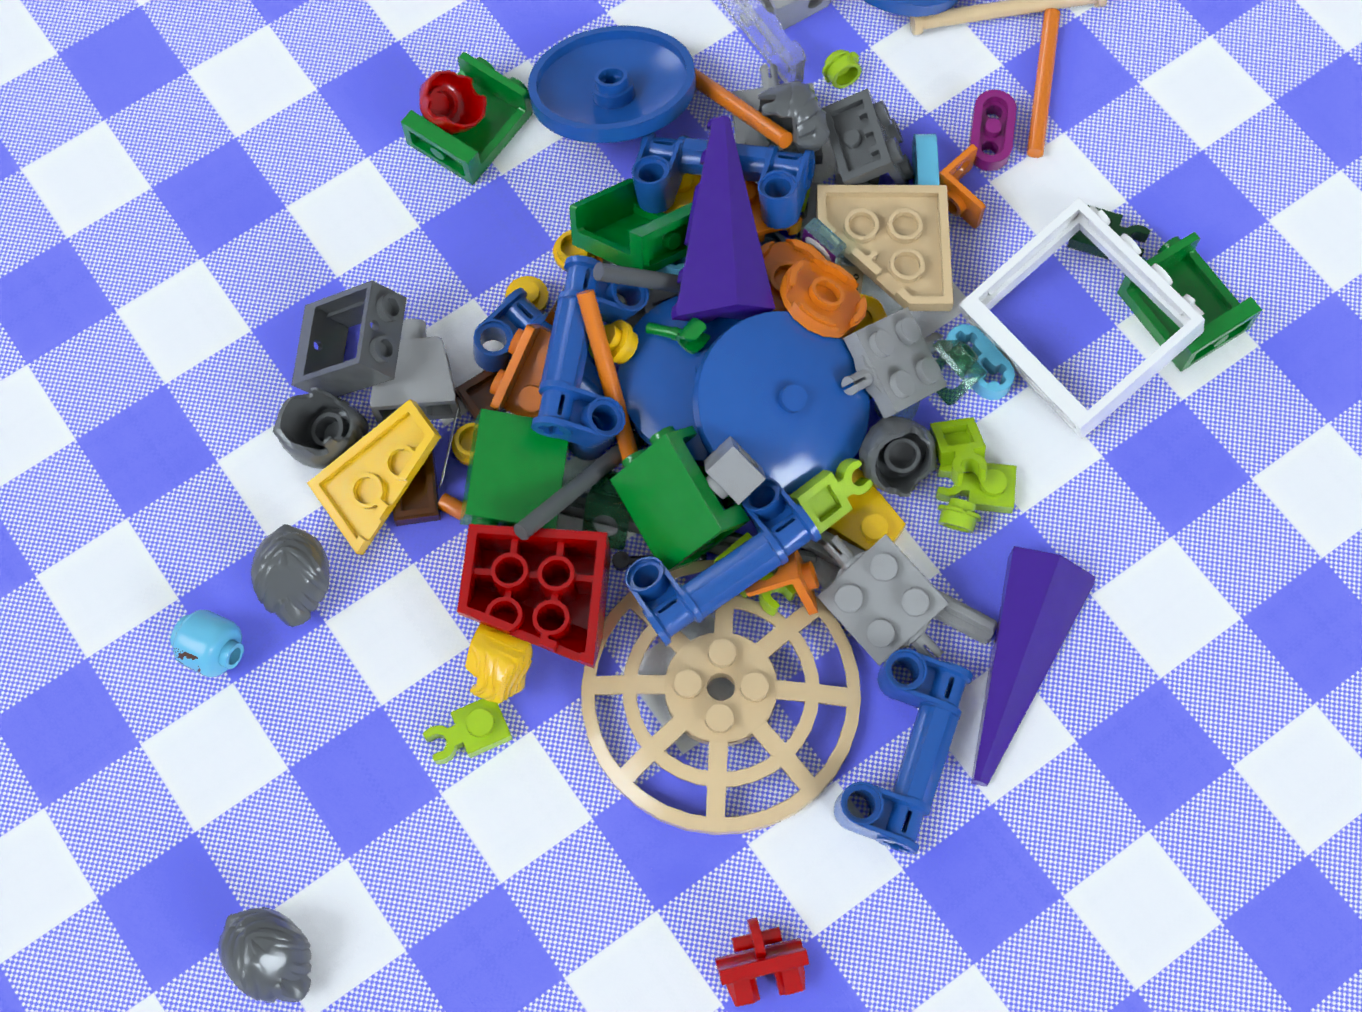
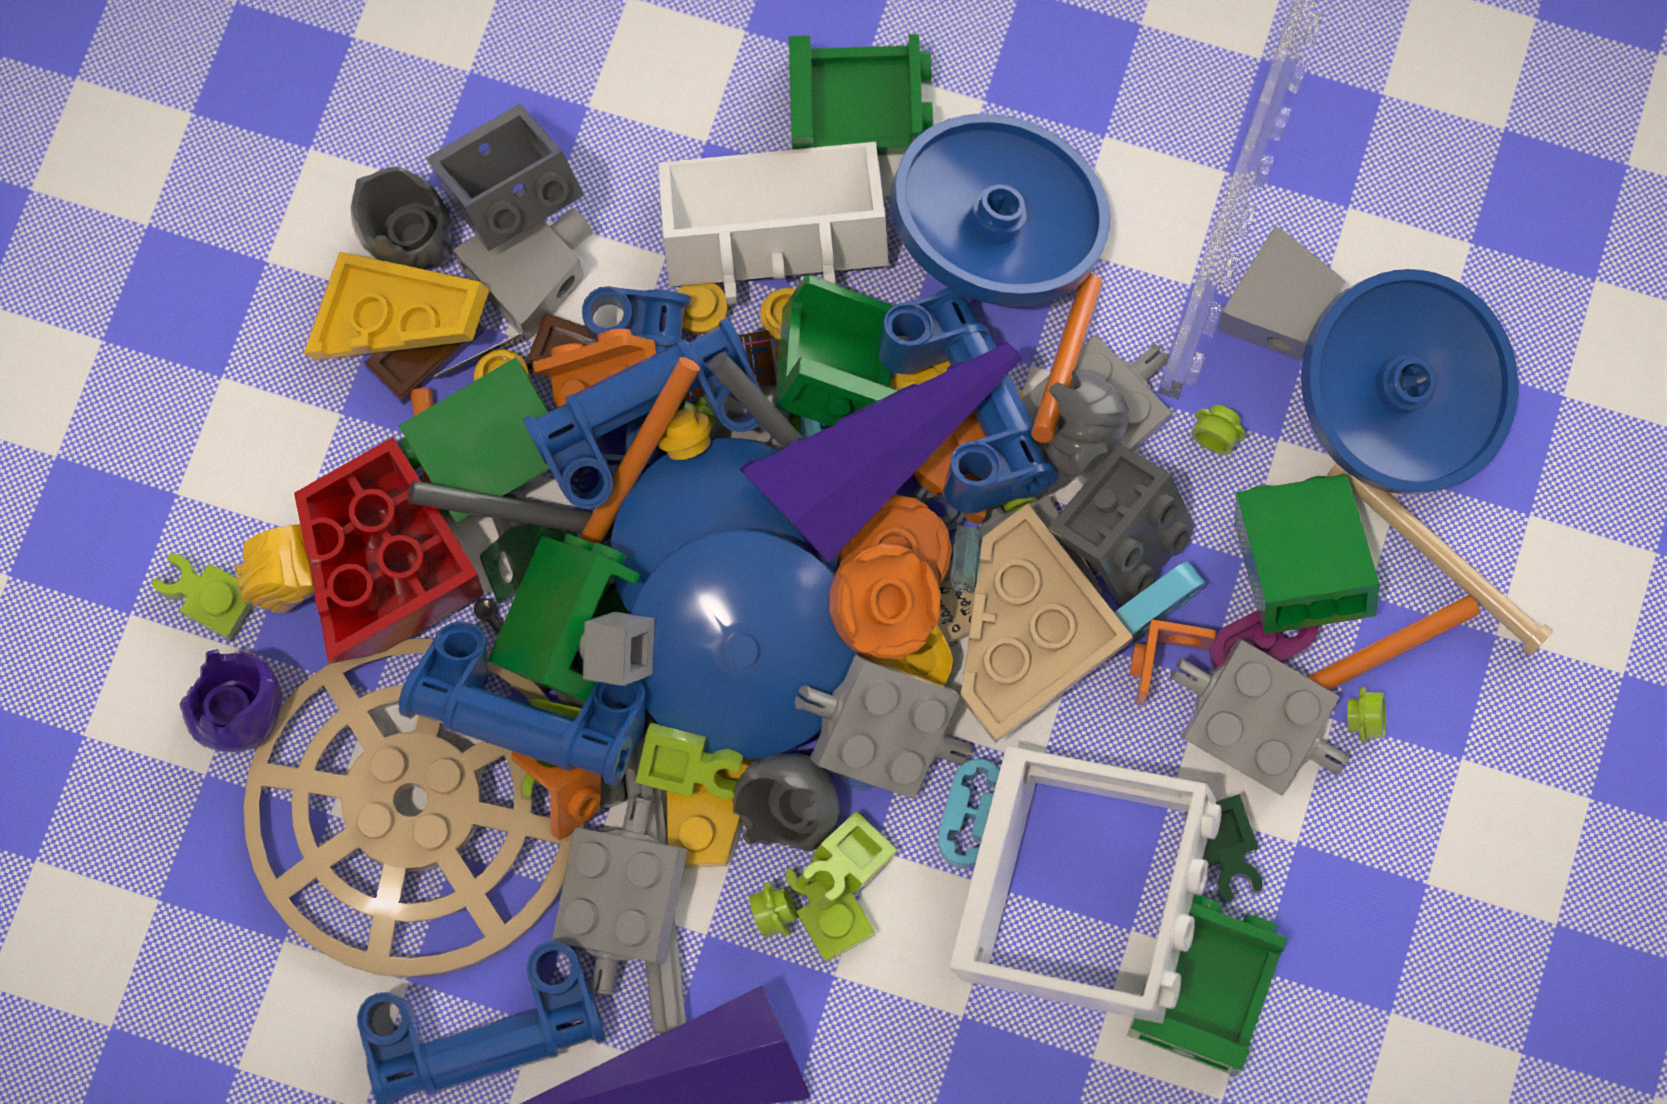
camera: 55 degrees right, 5 degrees up
(206, 643) = (113, 286): medium azure head -> none
(290, 574) = (234, 309): dark grey hair -> none
(451, 102) = (852, 67): red hair -> none
(505, 213) = (772, 215): none -> white piece
(562, 759) = (232, 702): none -> dark purple hair
(689, 338) = (738, 502): green hand -> none
(782, 959) = (173, 1028): red hips -> none
(961, 66) = (1306, 553): none -> green brick
(963, 362) = (933, 792): bracket -> none
(1040, 160) = (1259, 716): none -> light grey plate
(1080, 107) = (1367, 715): none -> lime plate

